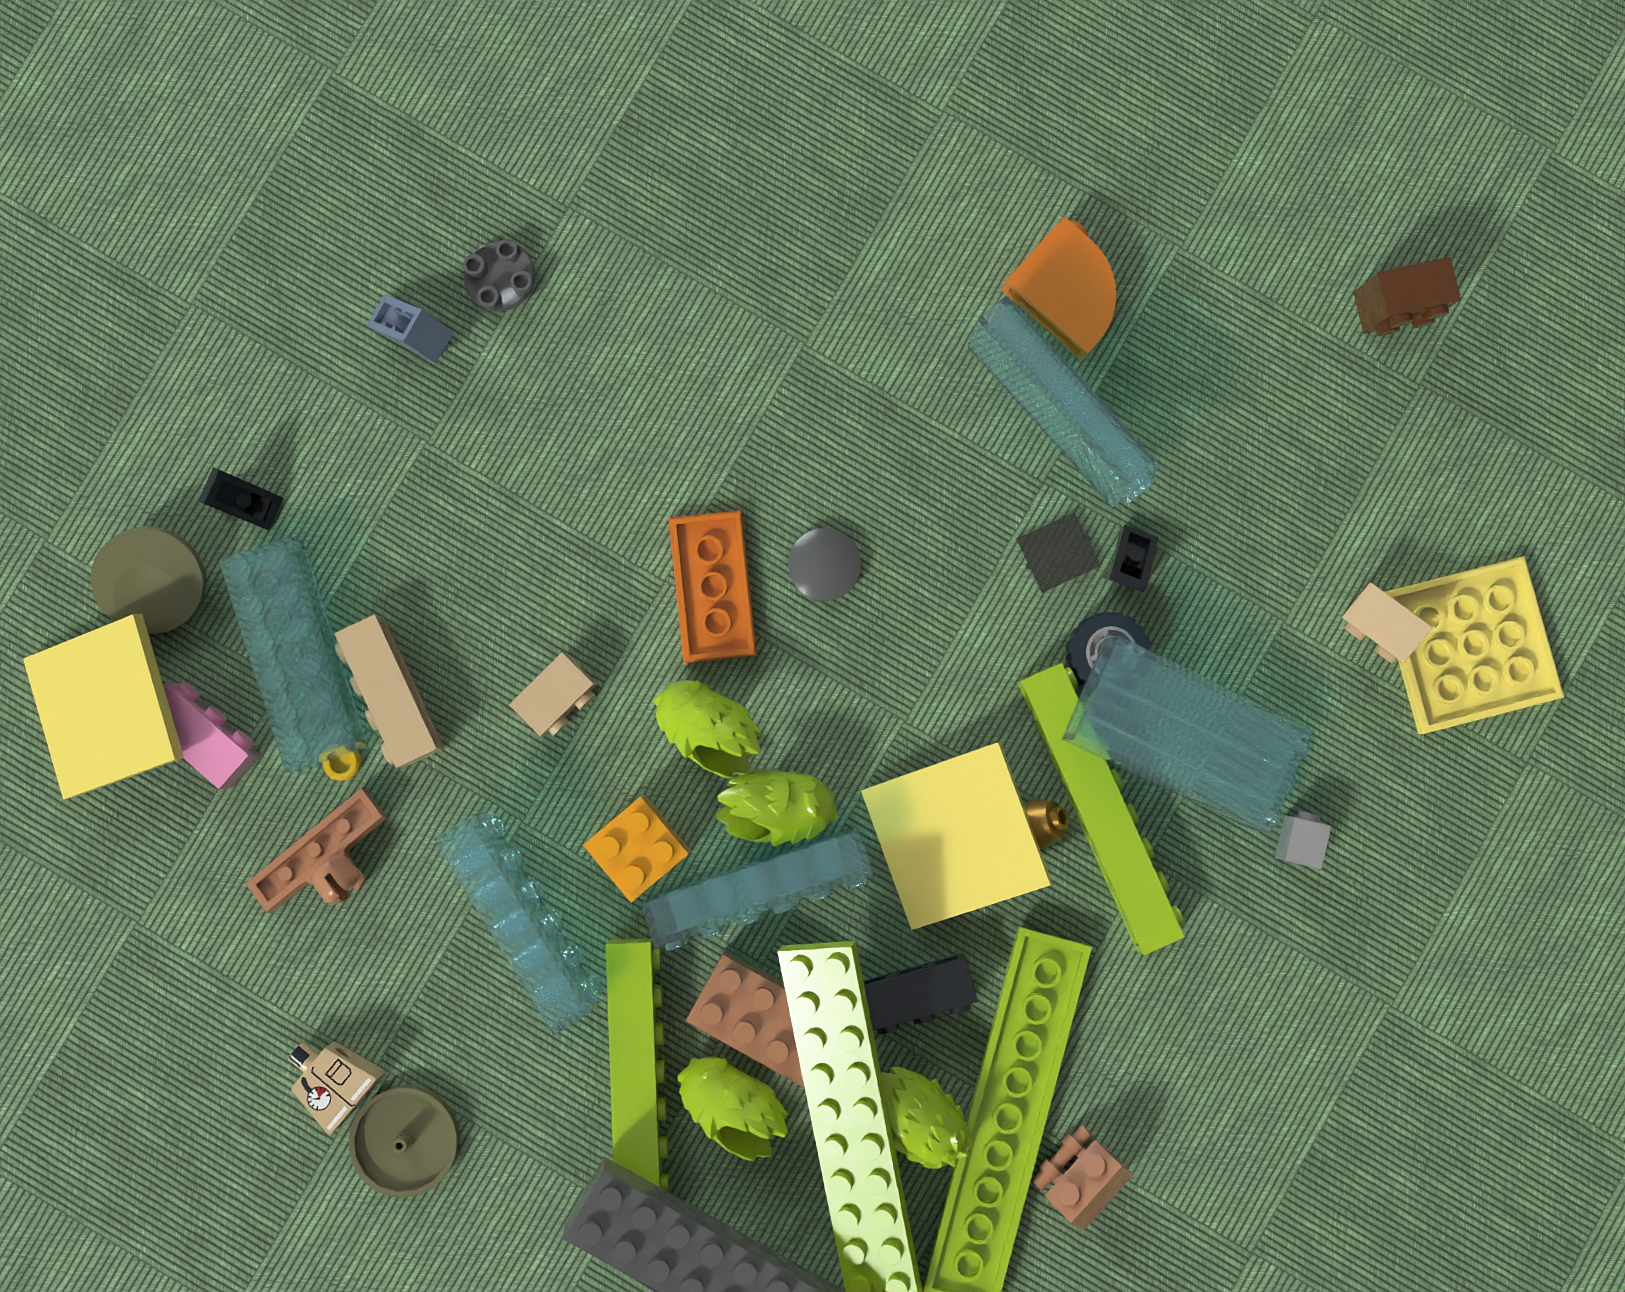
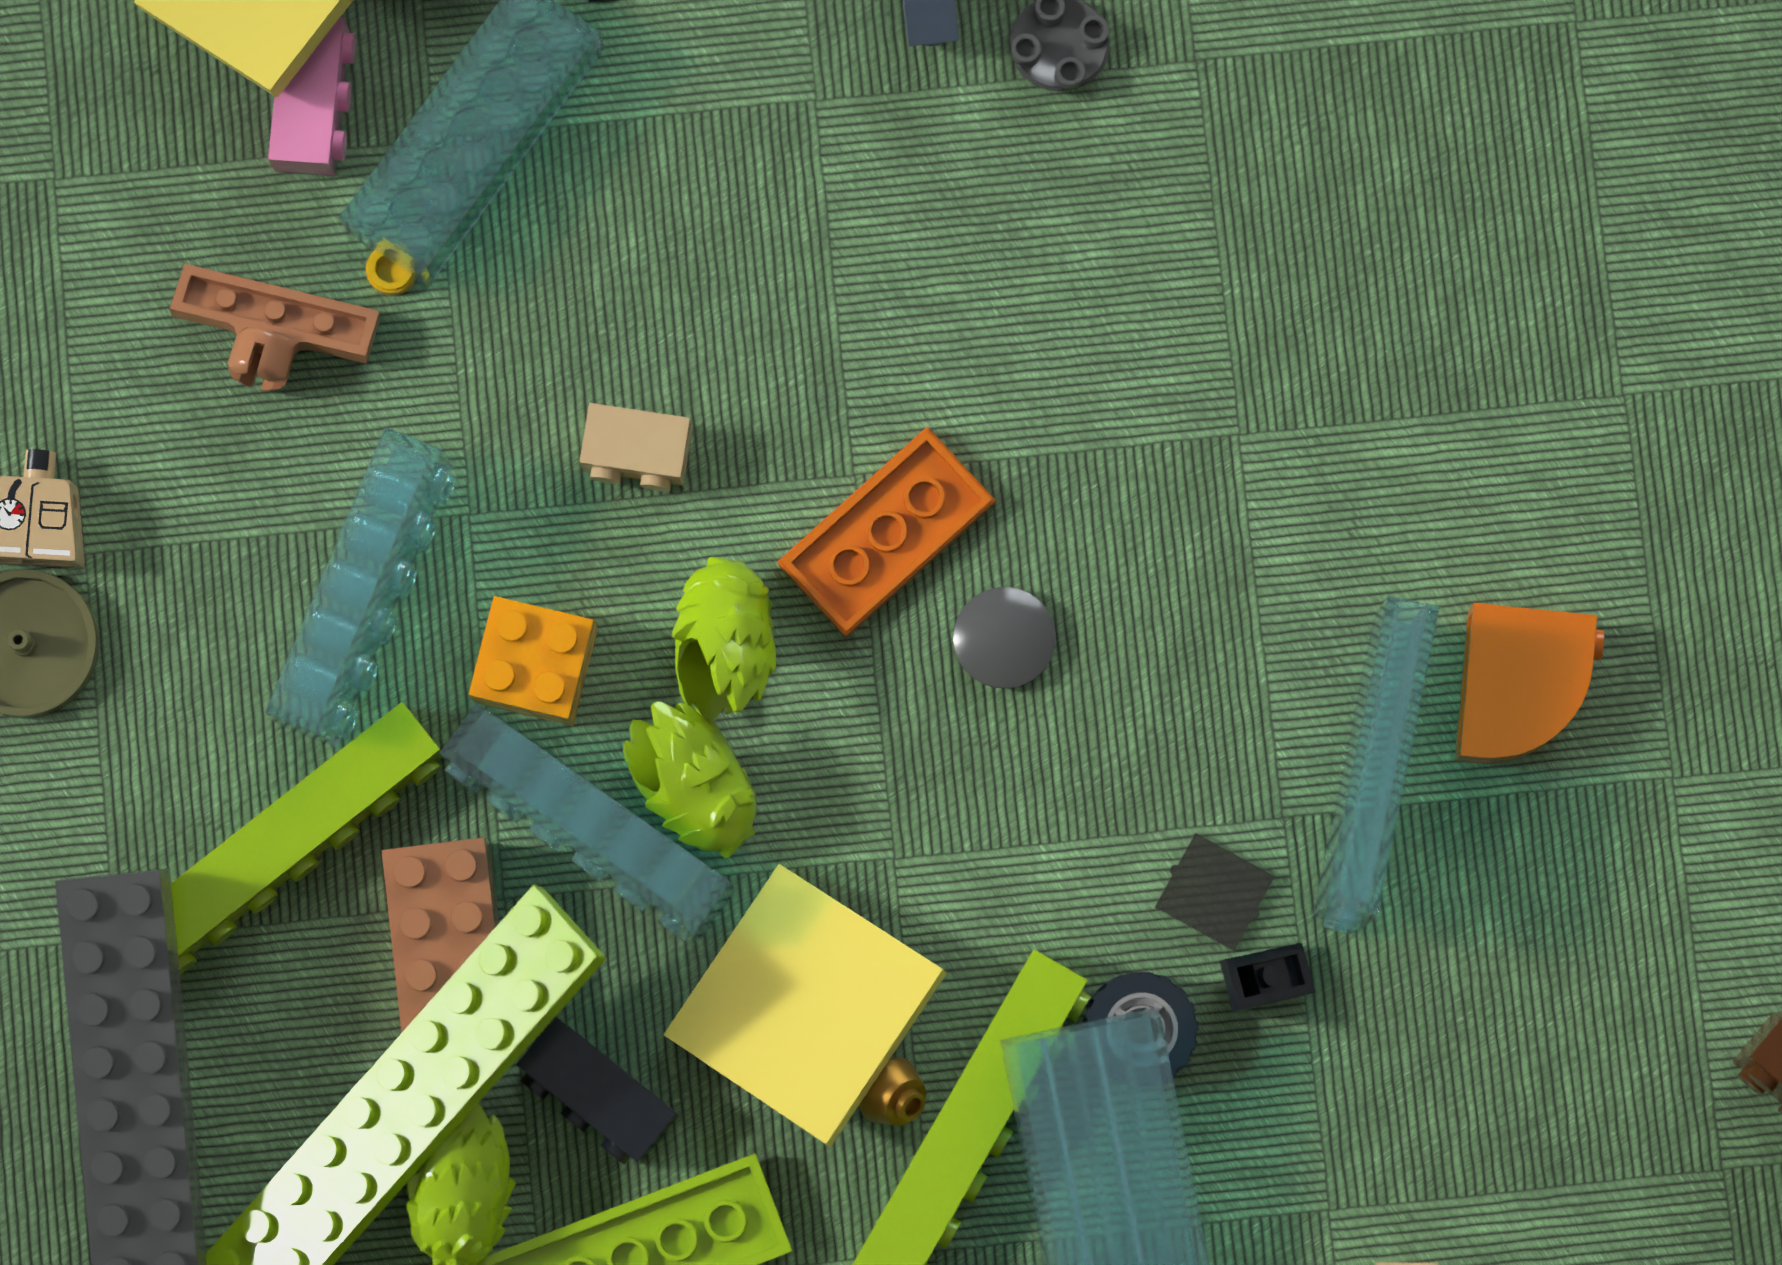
camera: 60 degrees right, 5 degrees down
(388, 691) = (507, 262): tan brick -> none
(732, 1107) = (322, 973): lime head -> none

